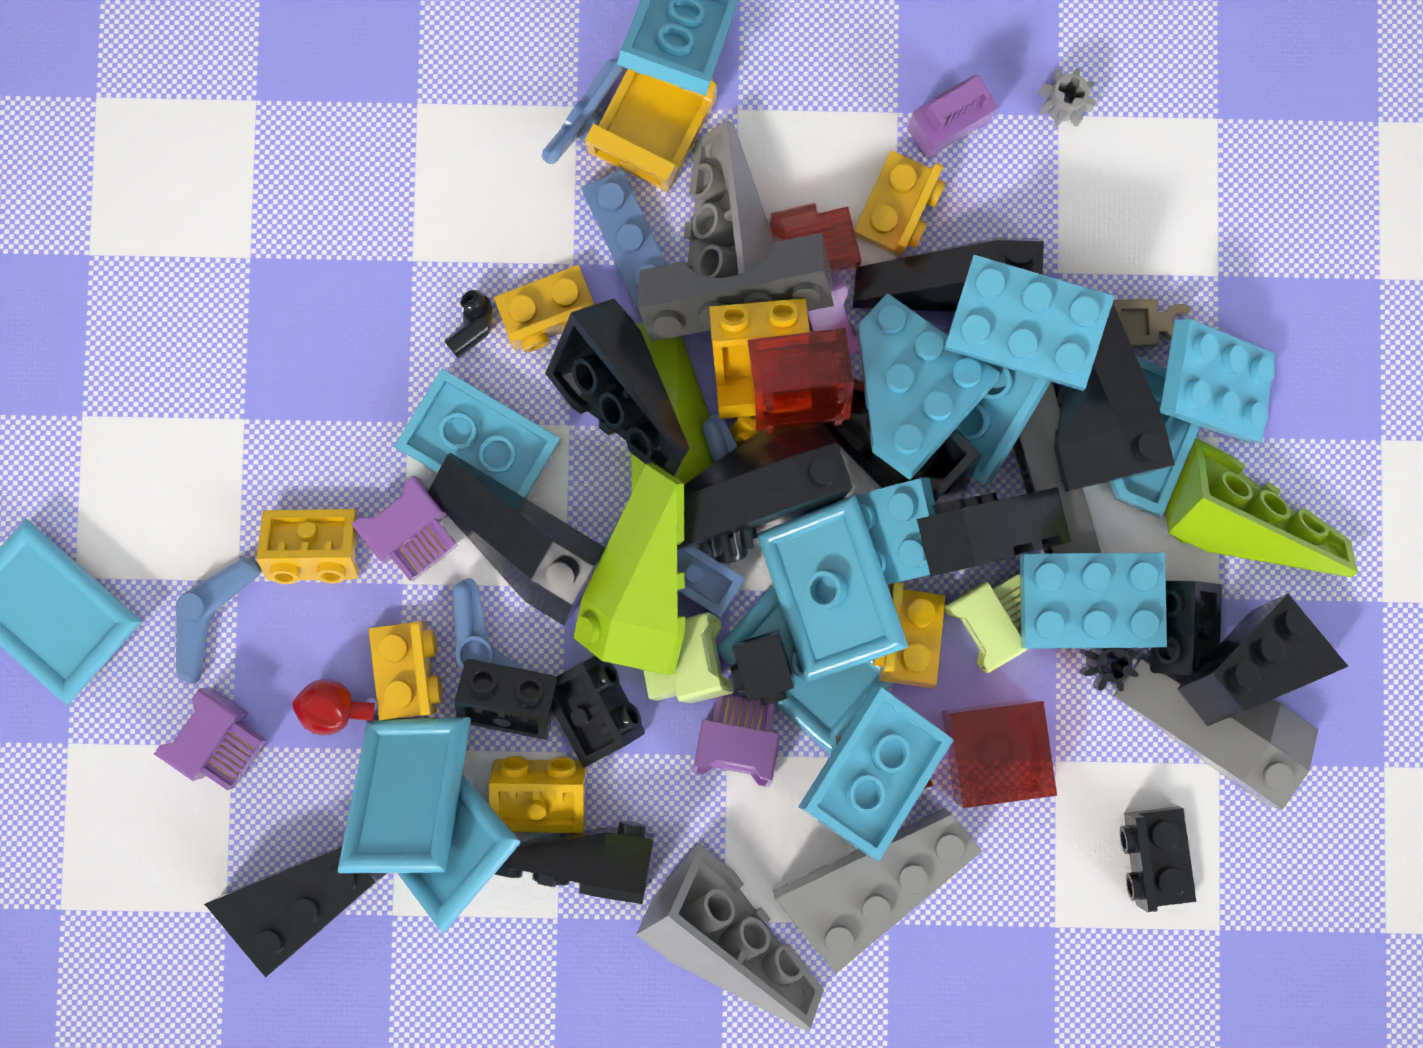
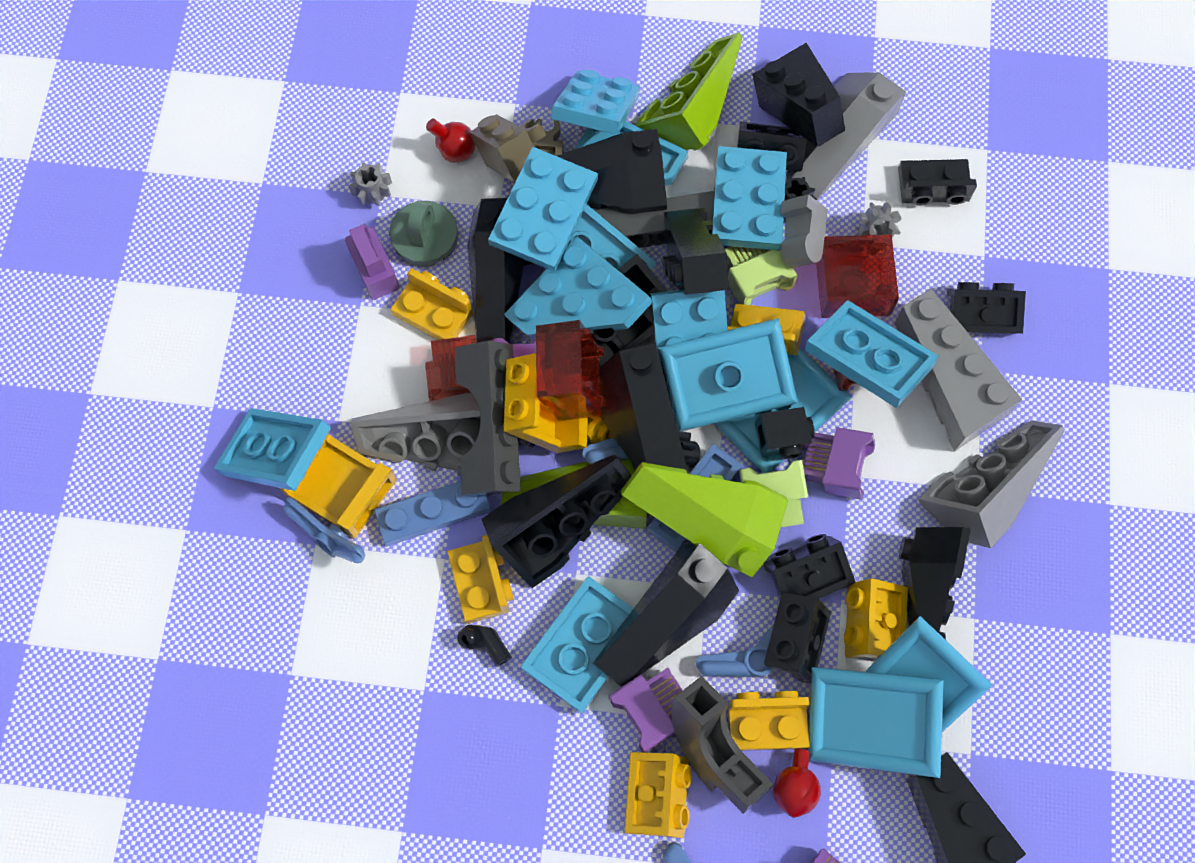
camera: 80 degrees left, 15 degrees down
(359, 605) = (711, 750): none -> dark grey arch
(973, 929) = (988, 309): none -> black bracket
(1006, 178) = (423, 233): none -> sand green tile
(1045, 676) = (803, 231): none -> light grey leg
(1081, 781) = (876, 215): none -> light grey gear
(1137, 270) = (505, 144): none -> dark tan brick
(1145, 197) = (452, 140): none -> red piece

